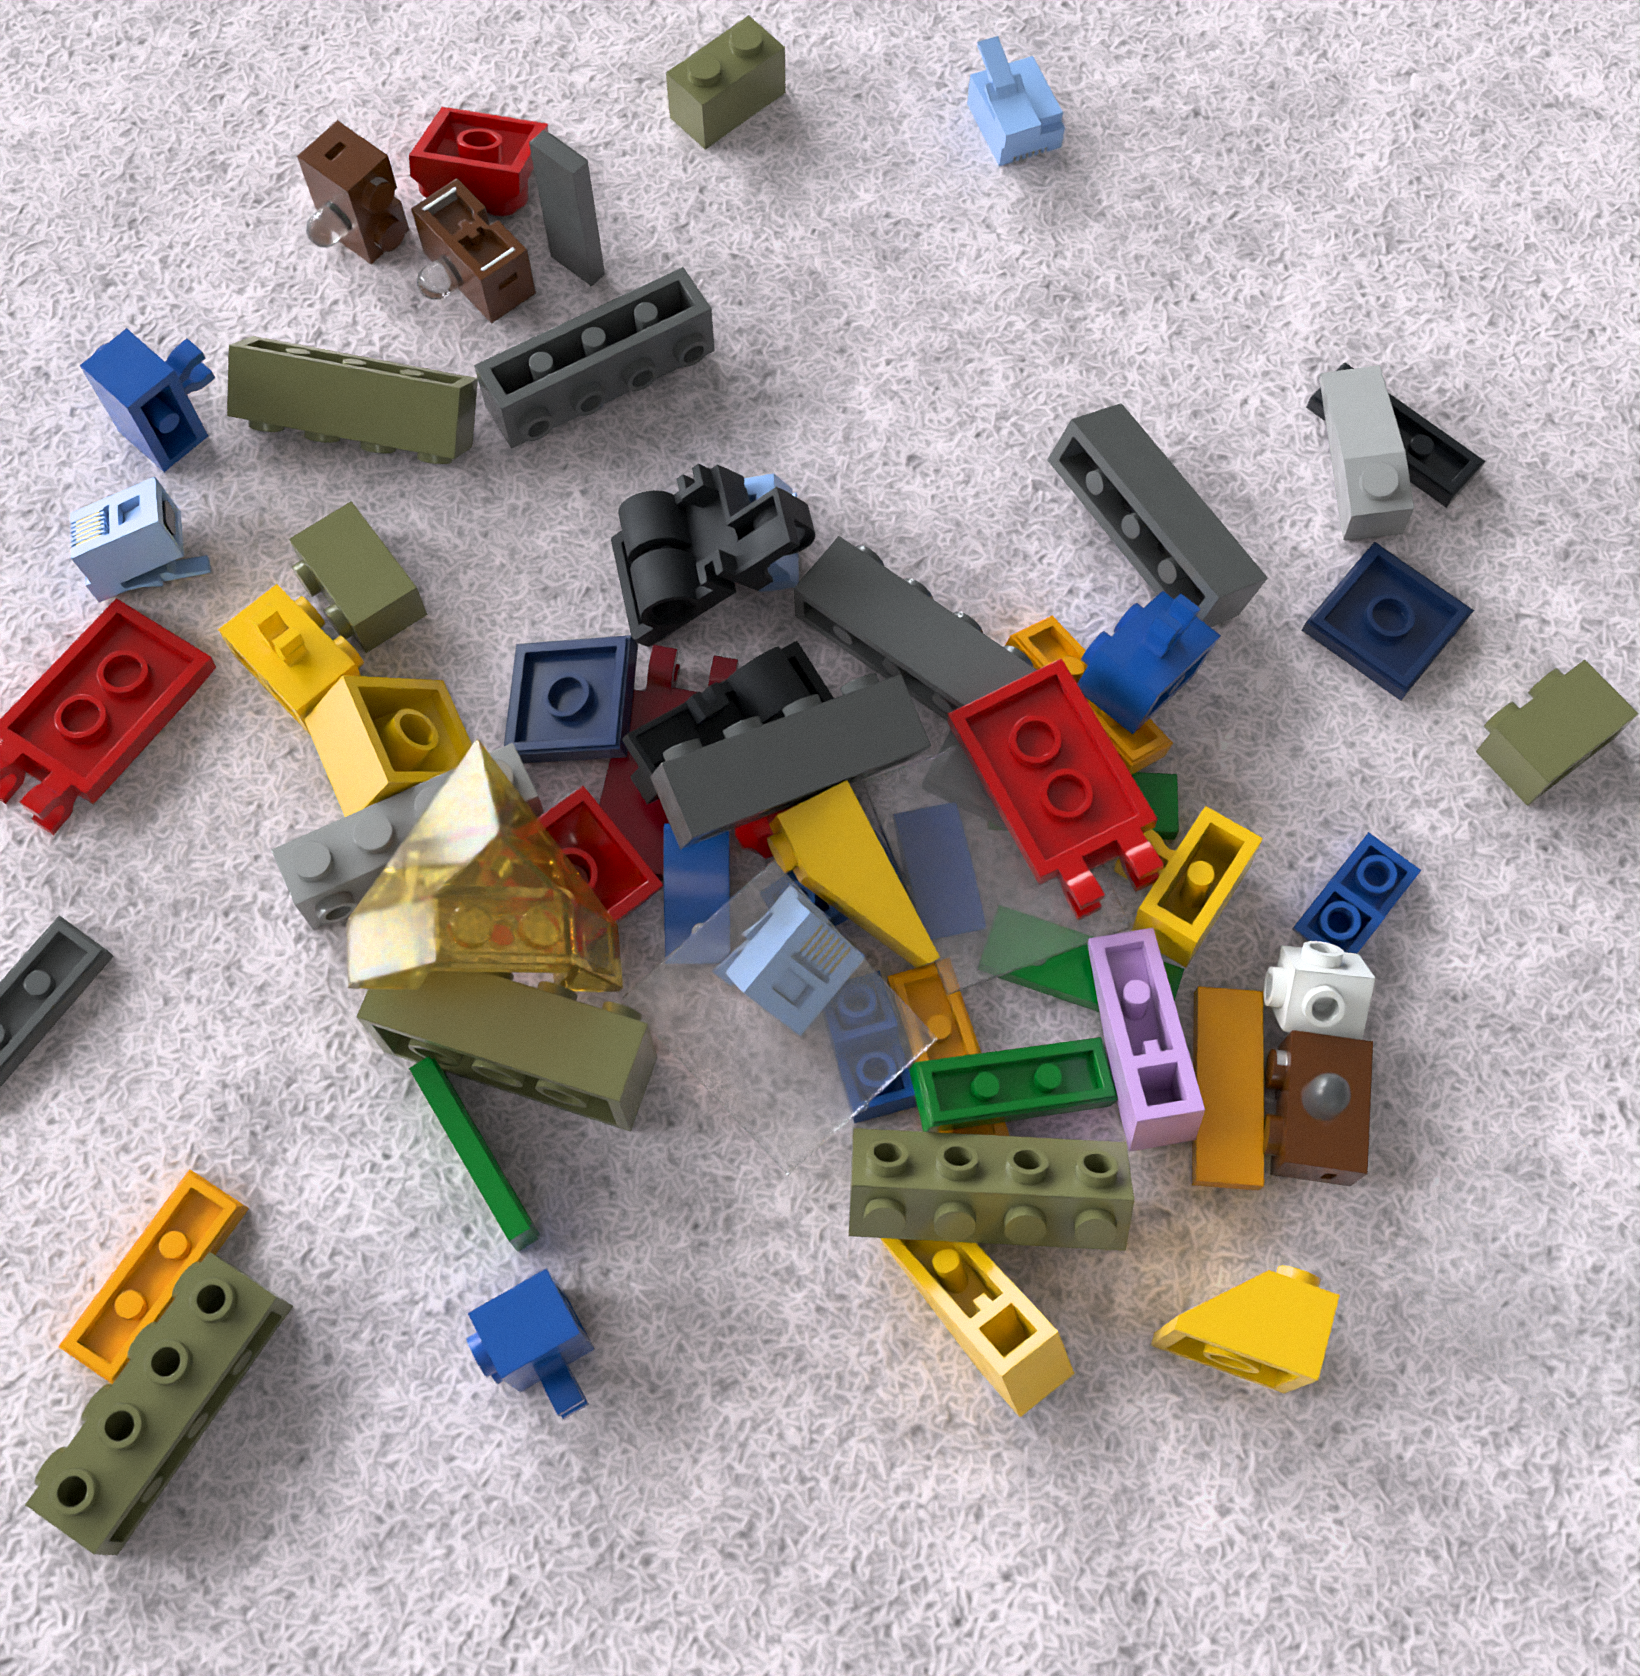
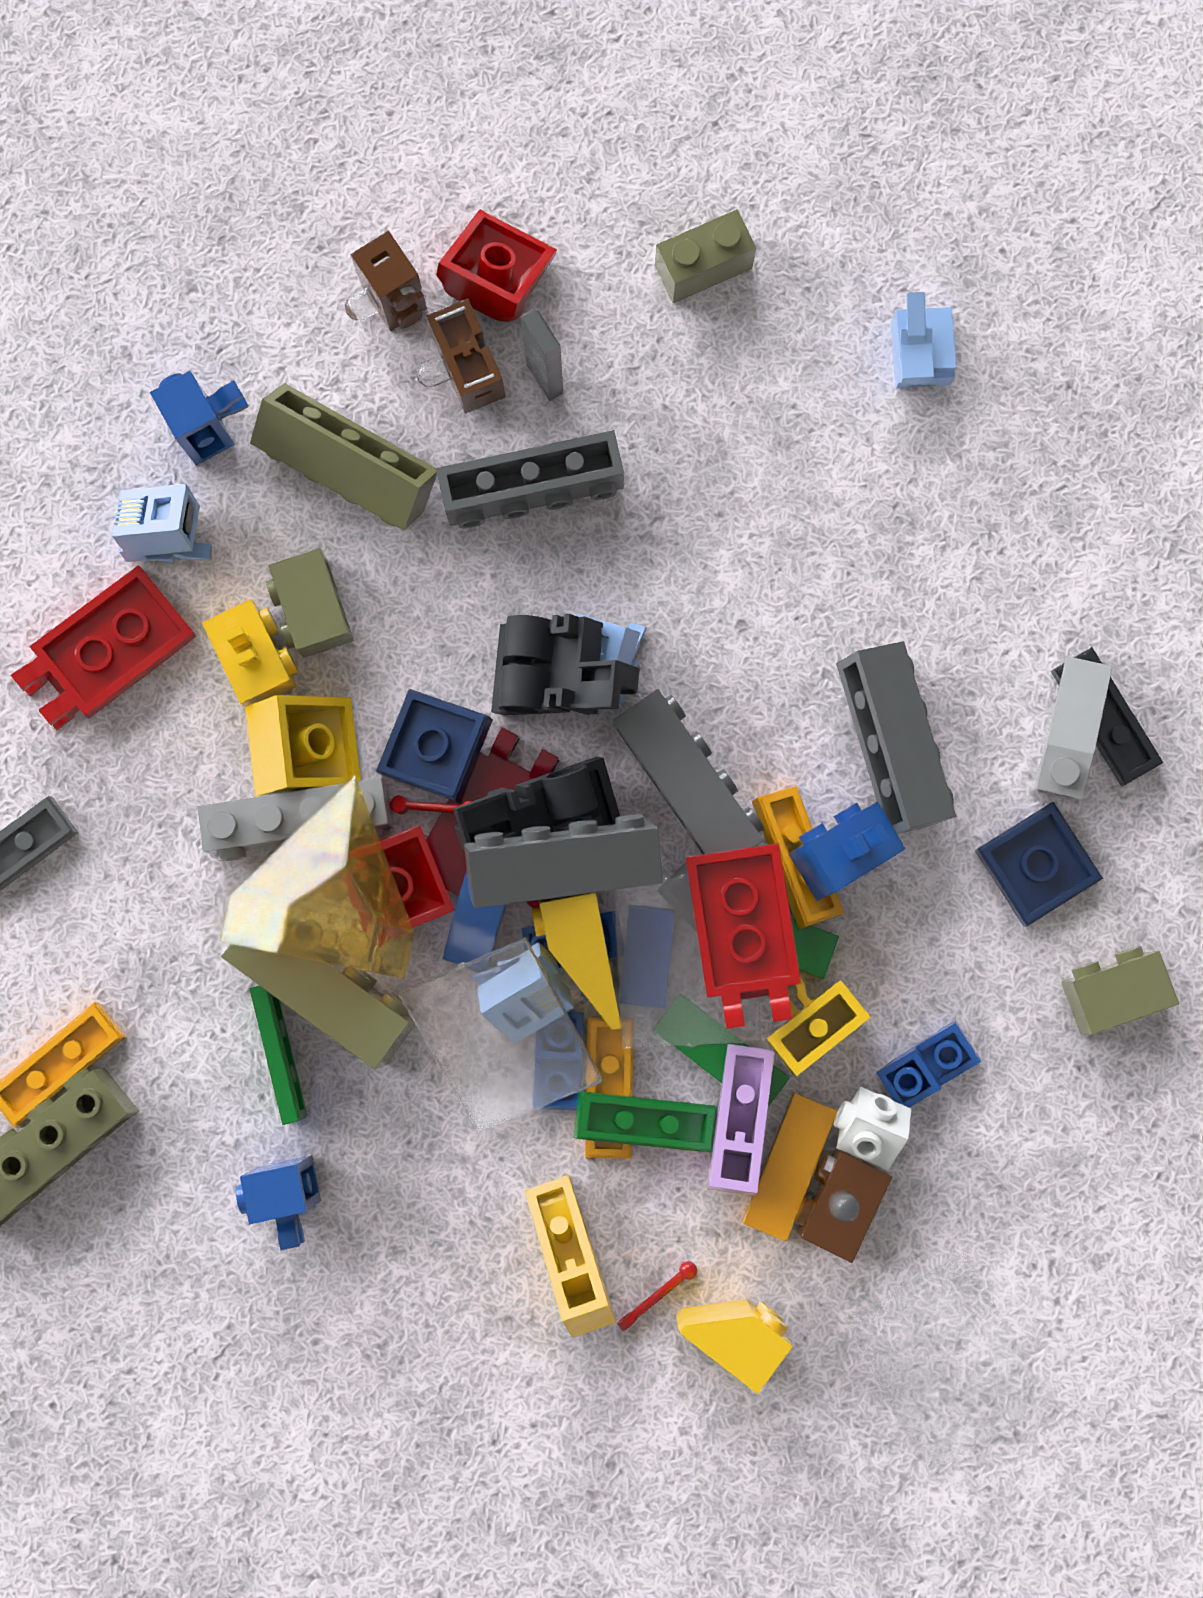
camera: 20 degrees right, 15 degrees up
(550, 789) = (401, 805): none -> red hinge
(990, 1189) = (602, 1190): olive brick -> none
(1145, 1275) = (687, 1271): none -> red hinge

